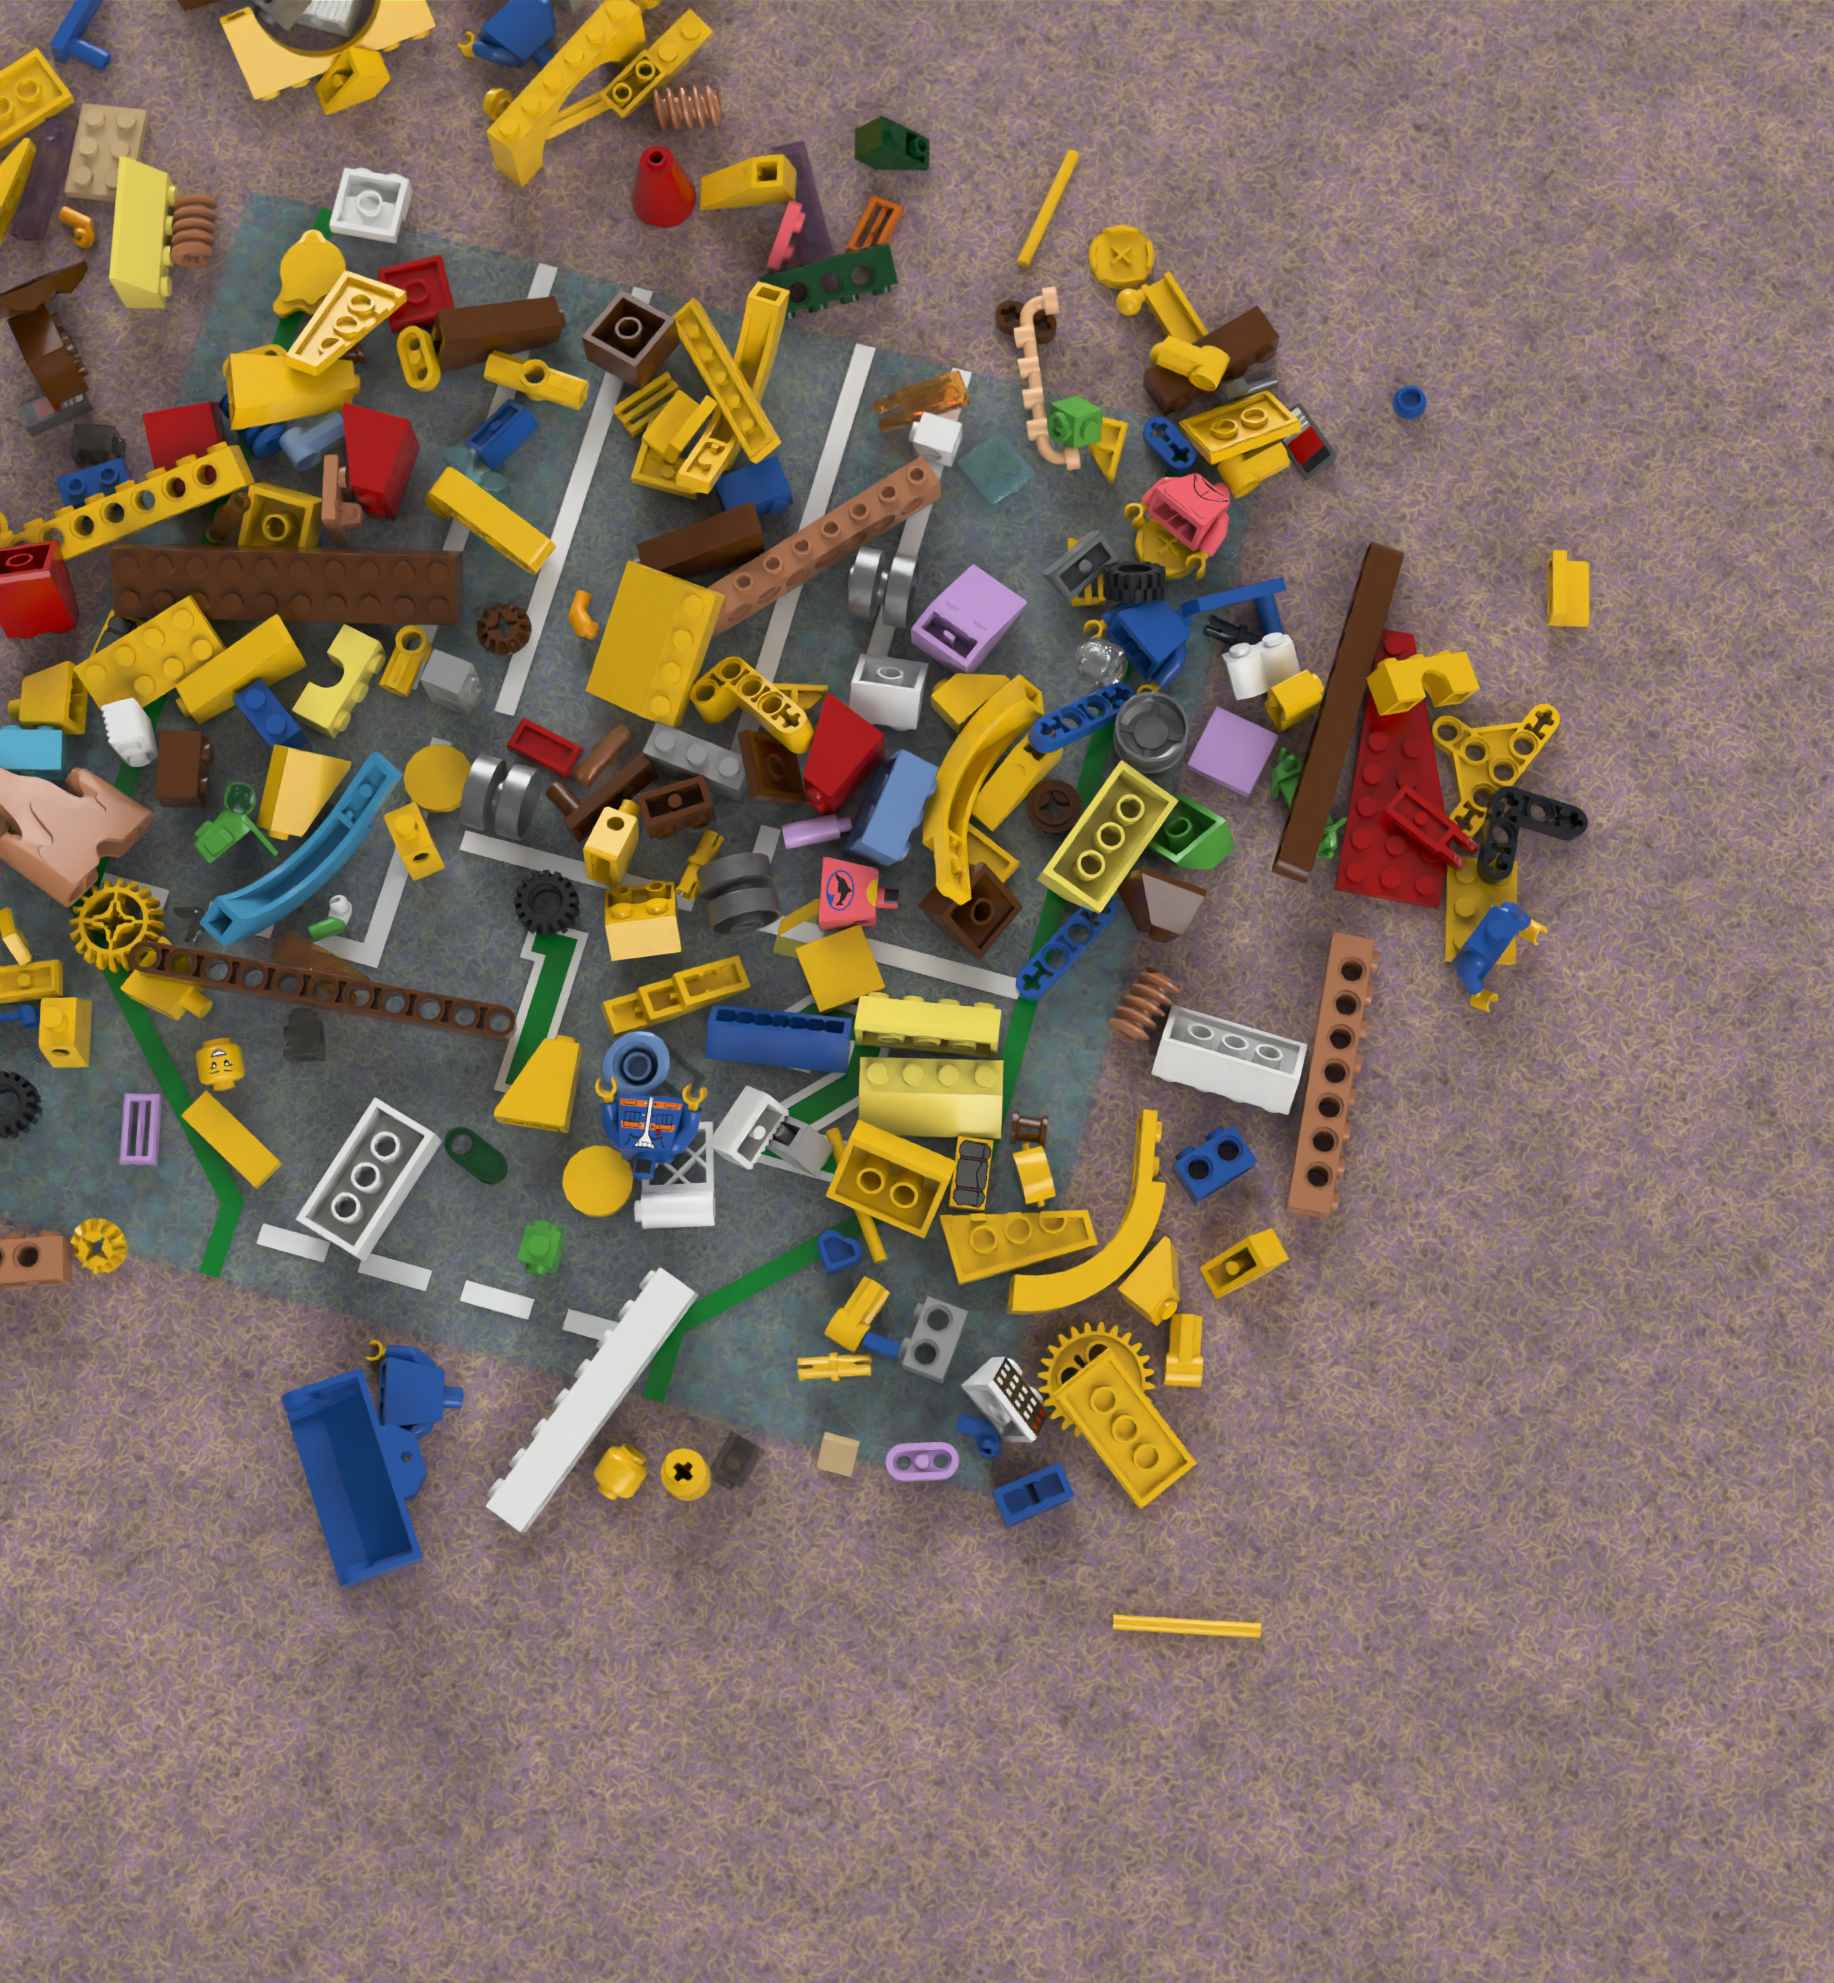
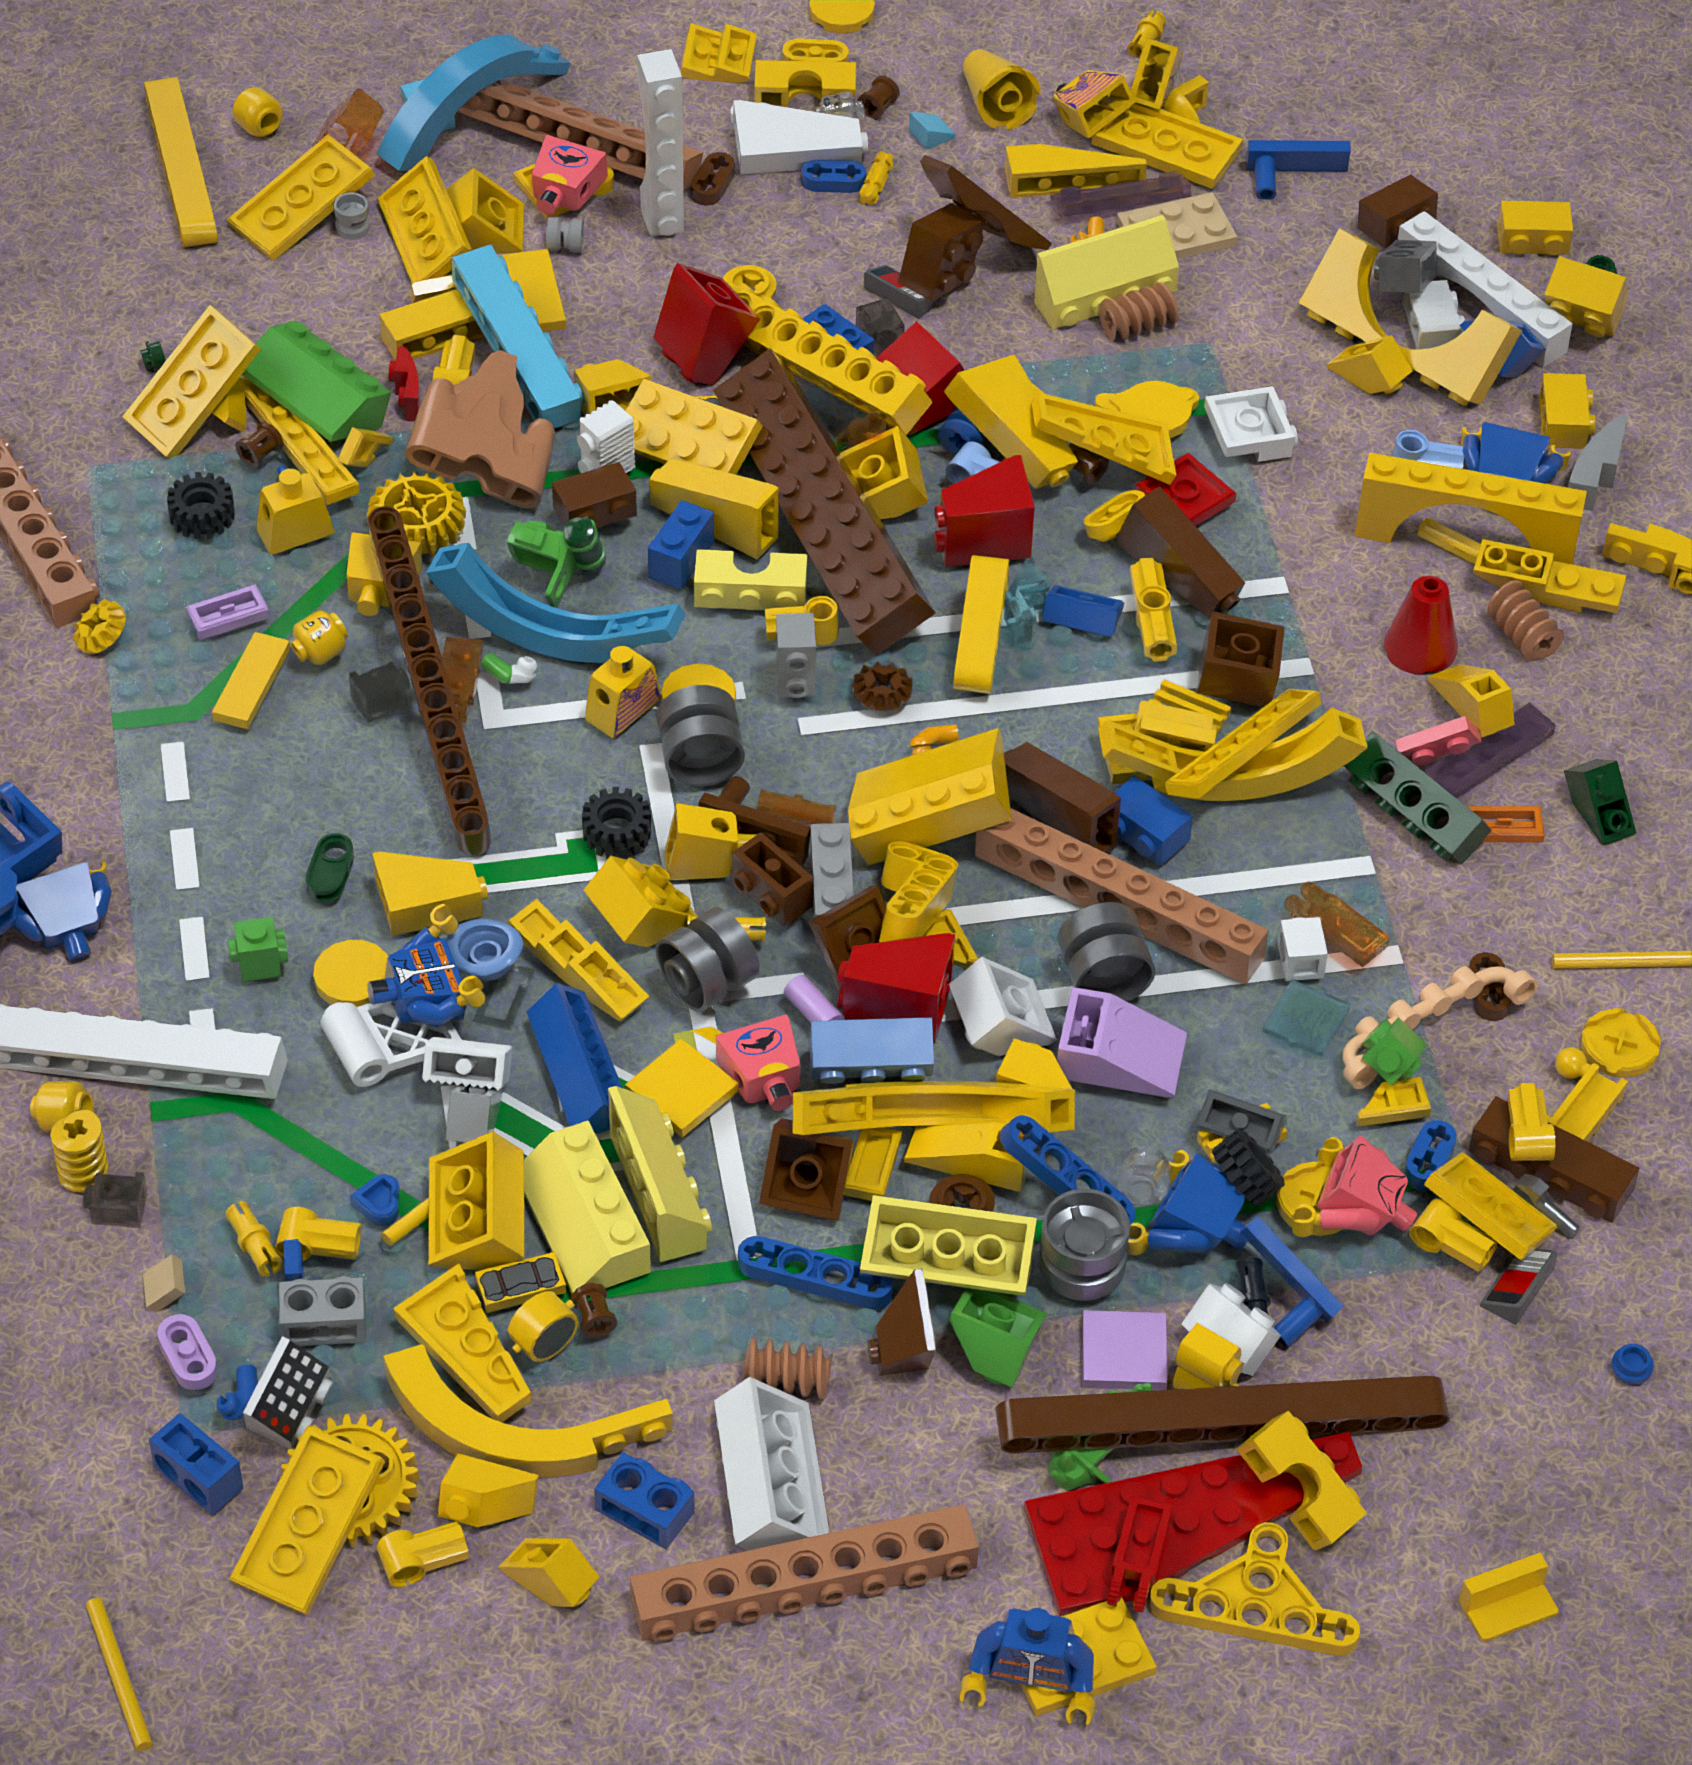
camera: 60 degrees right, 25 degrees down
(297, 789) = (619, 583): yellow slope -> none
(337, 493) = (916, 499): nougat hinge -> none
(369, 1179) = (259, 787): white brick -> none
(472, 88) = (1415, 446): none -> light blue piece
(545, 748) = (778, 762): red tile -> none
(1520, 816) = (1208, 1642): black beam -> none

